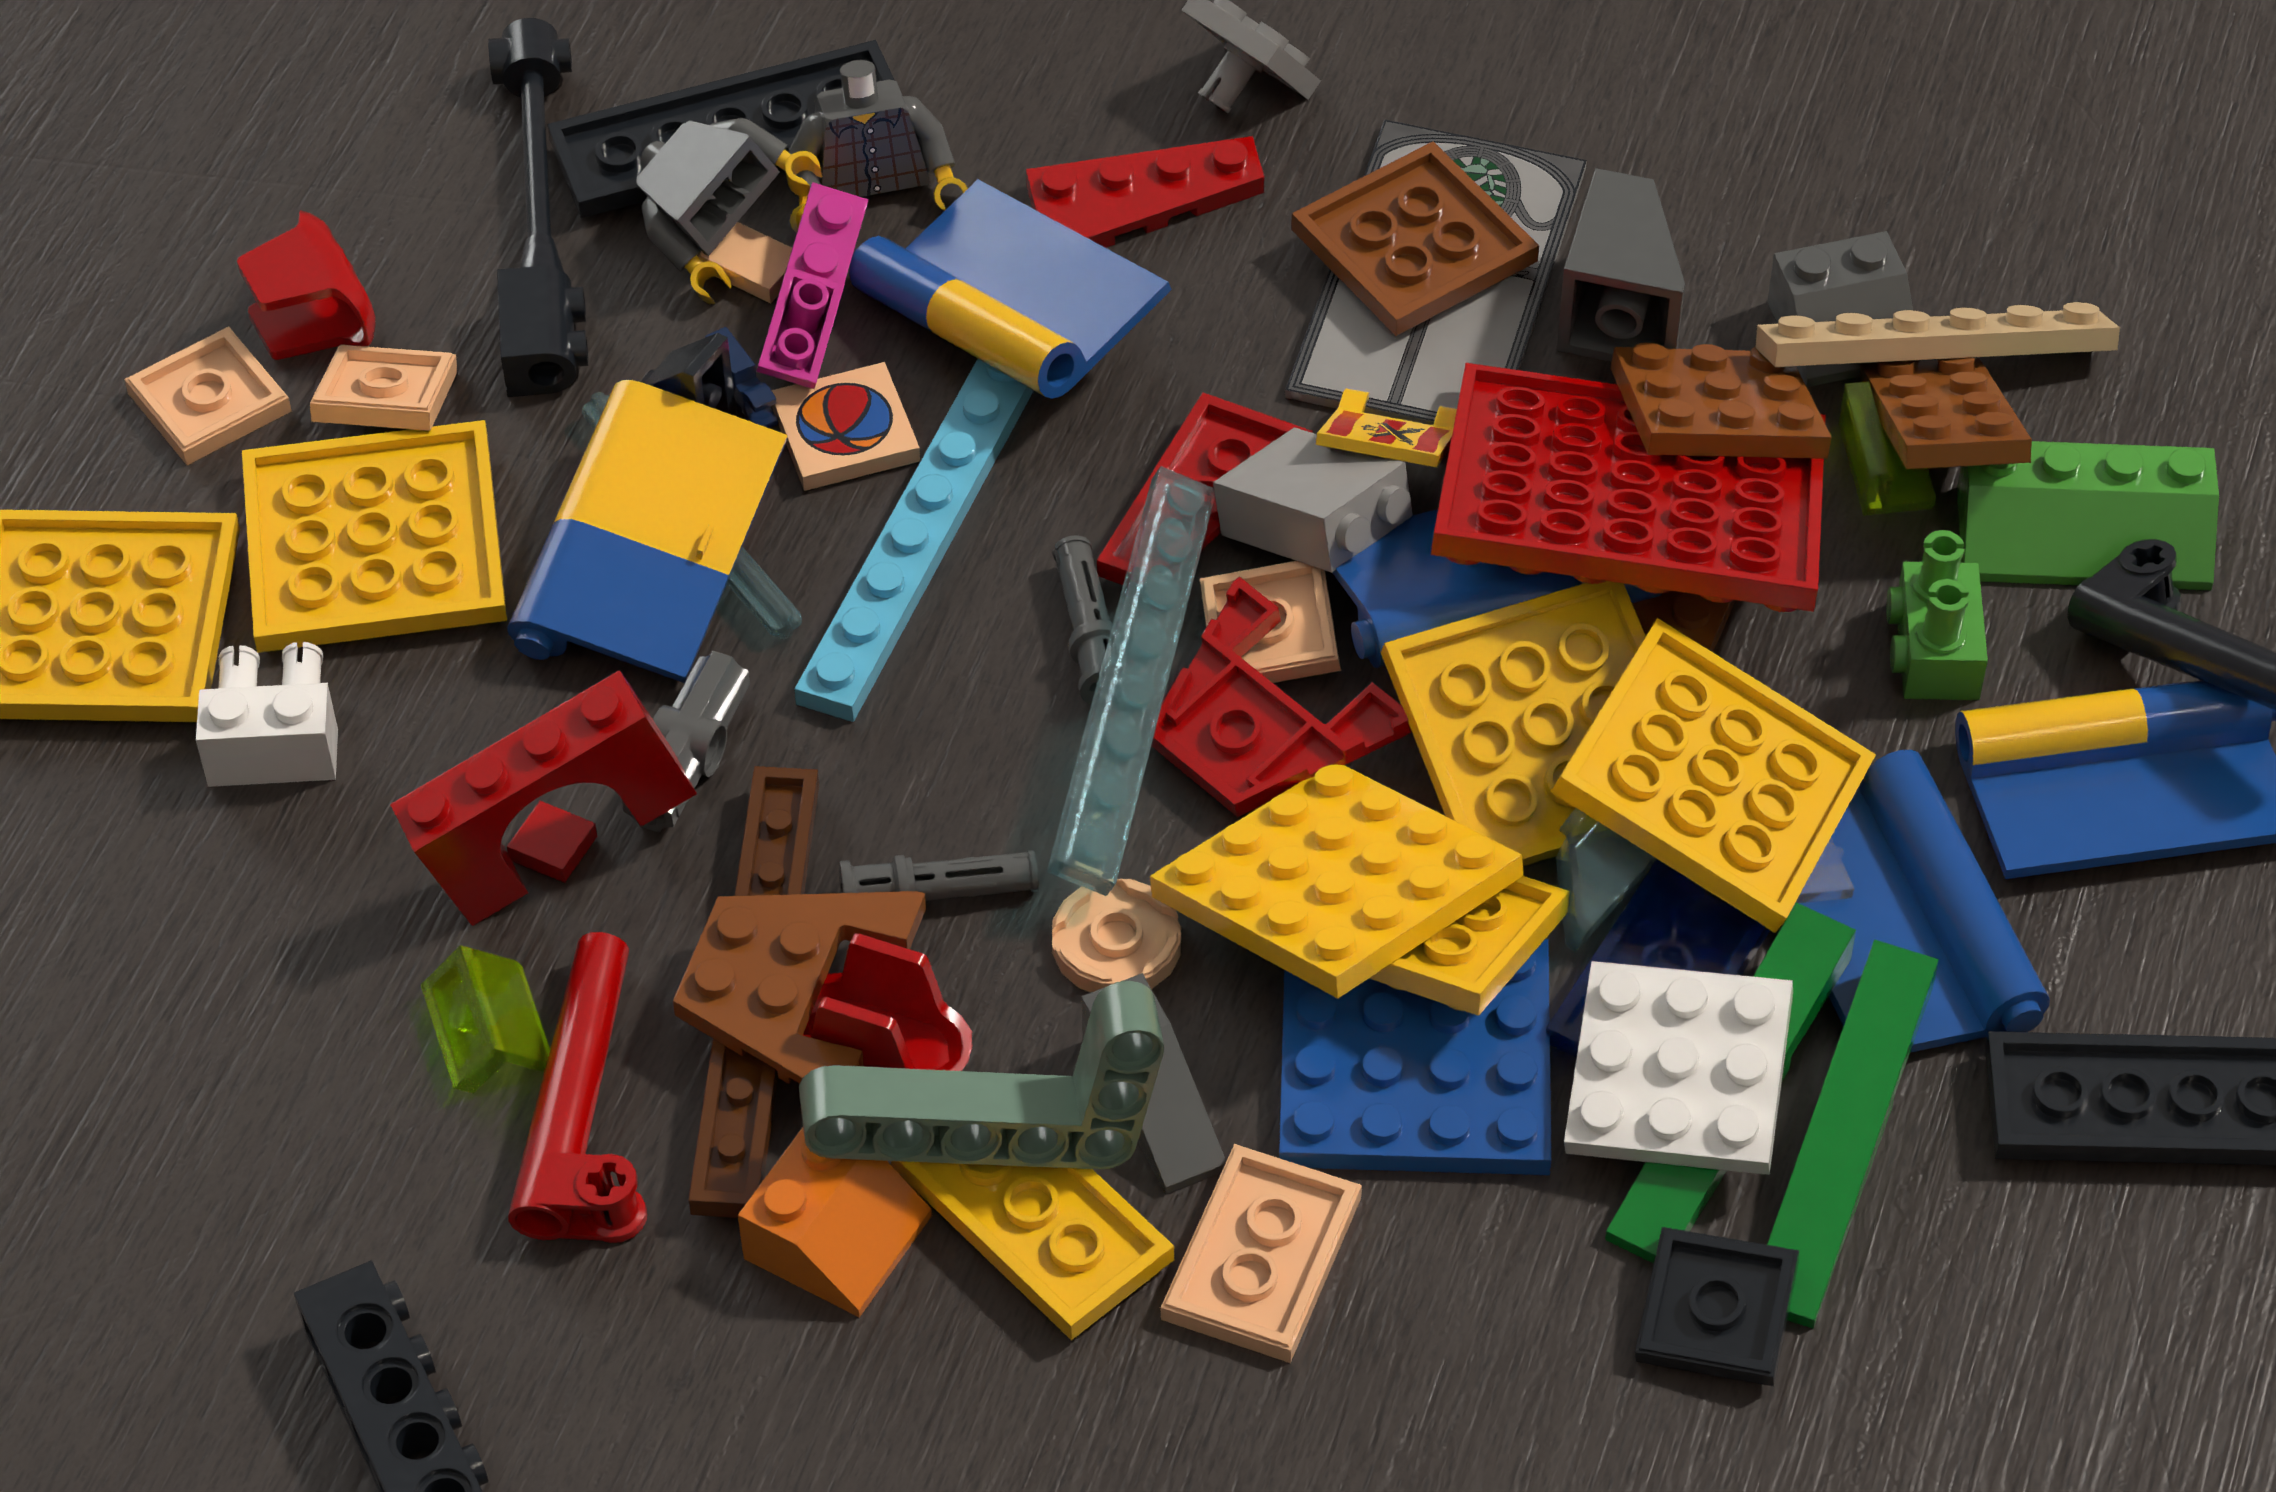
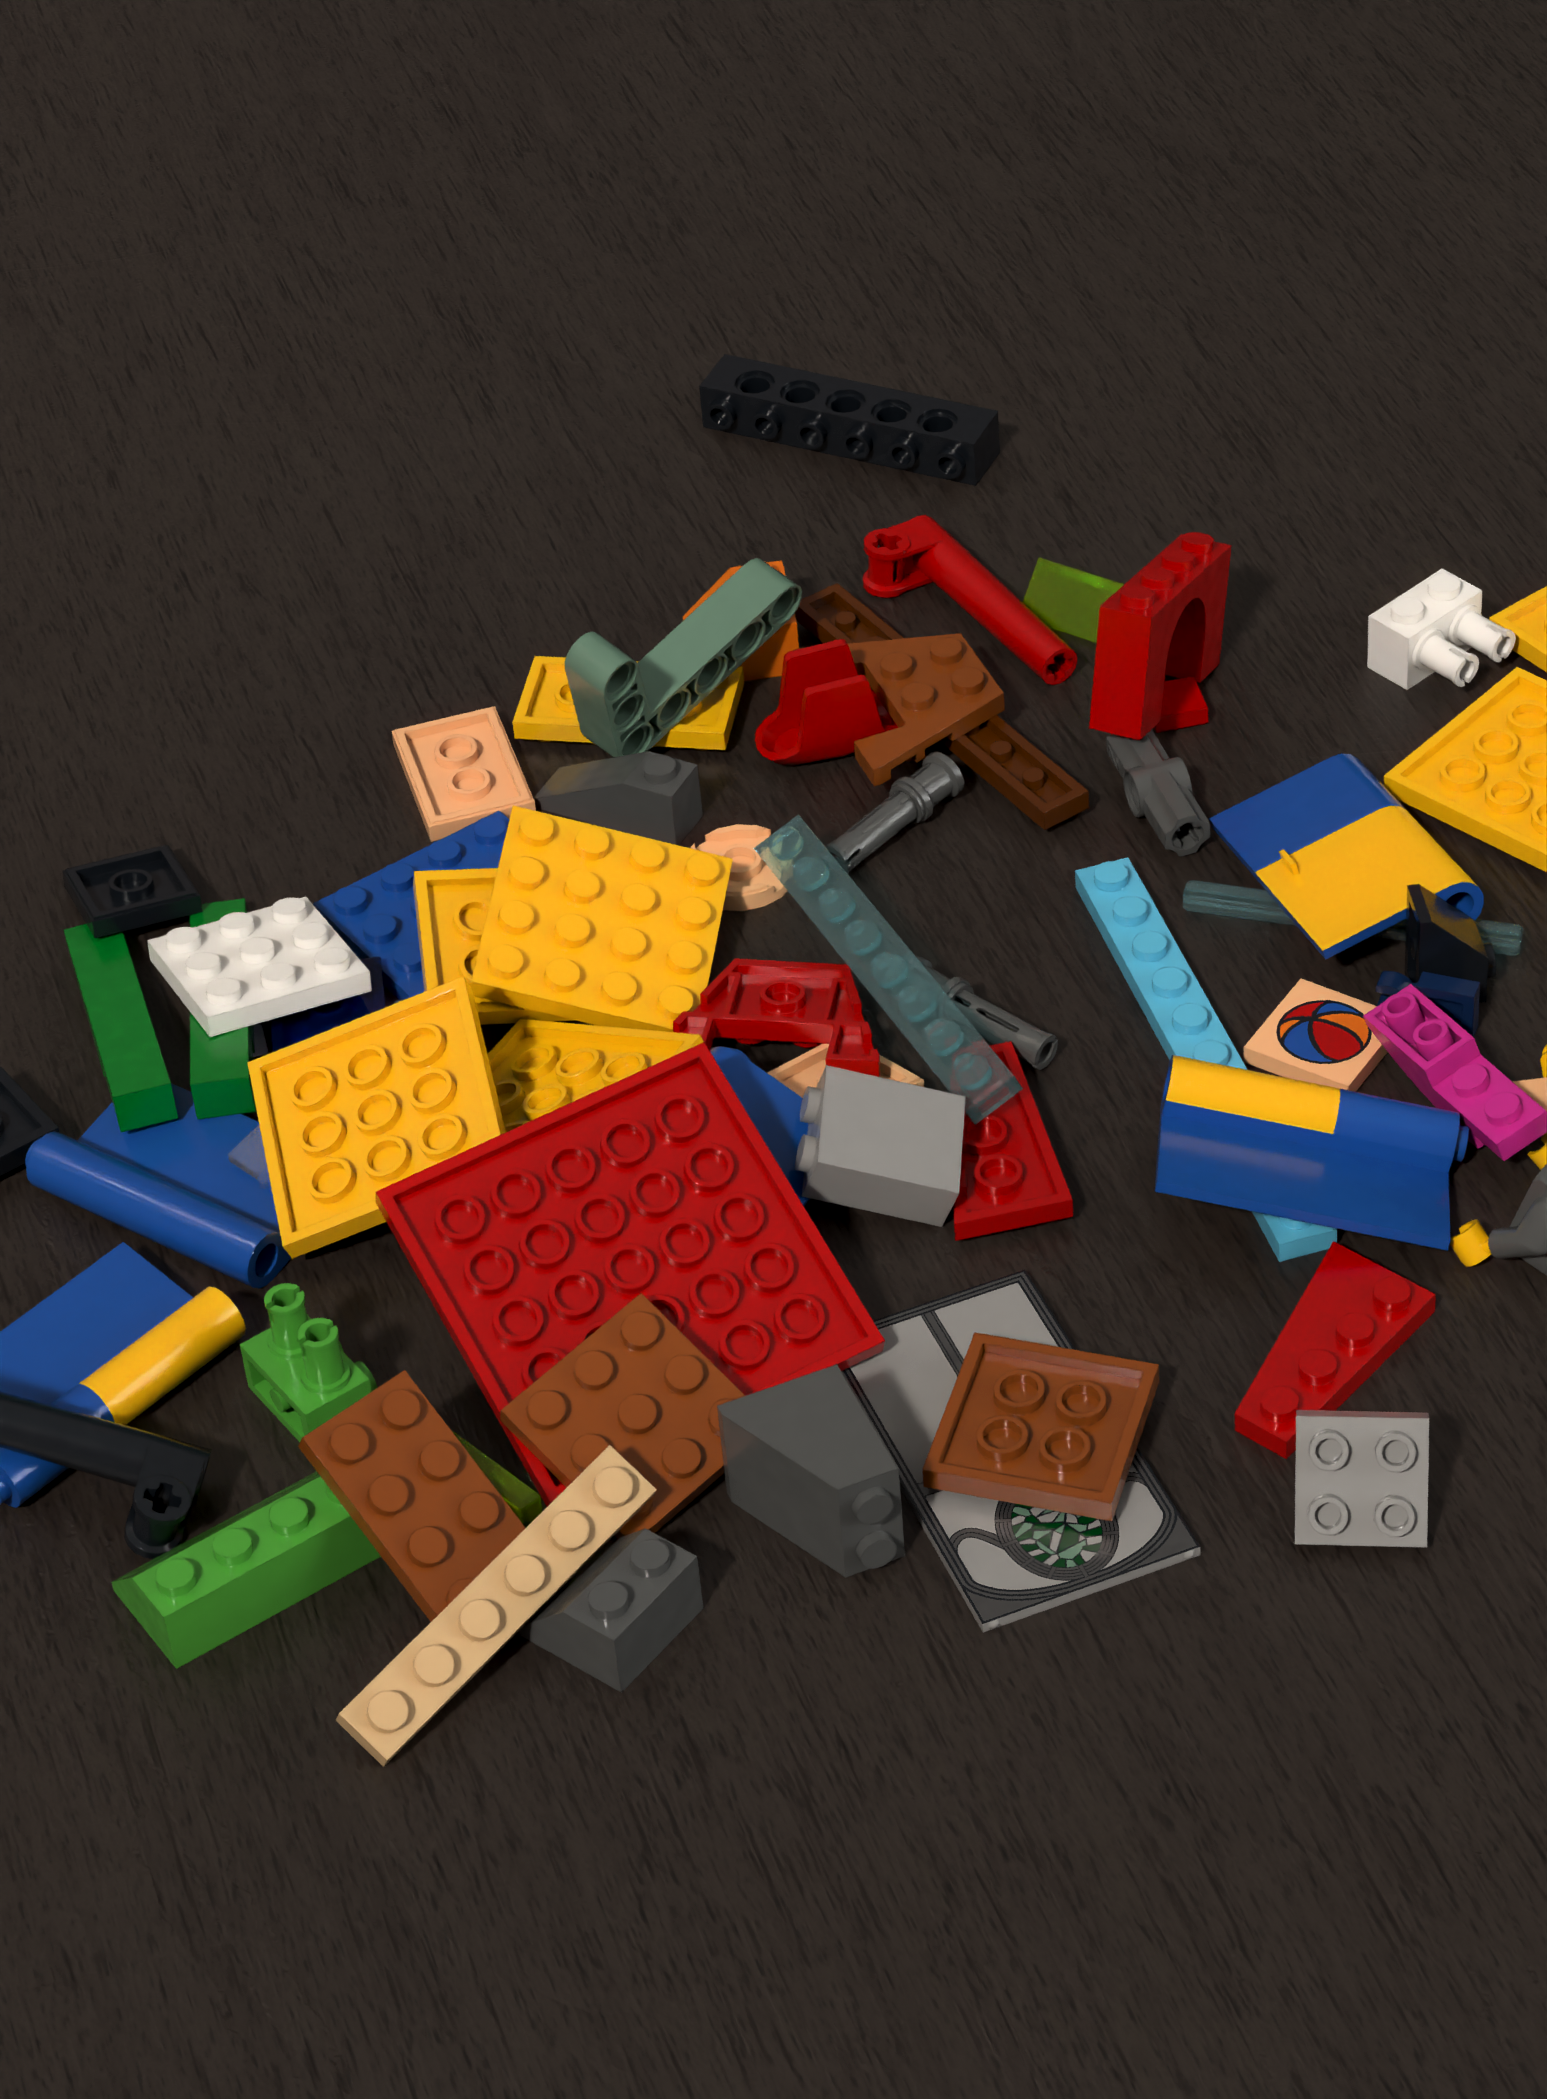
camera: 145 degrees right, 10 degrees down
(1386, 436) = (878, 1215): yellow flag -> none

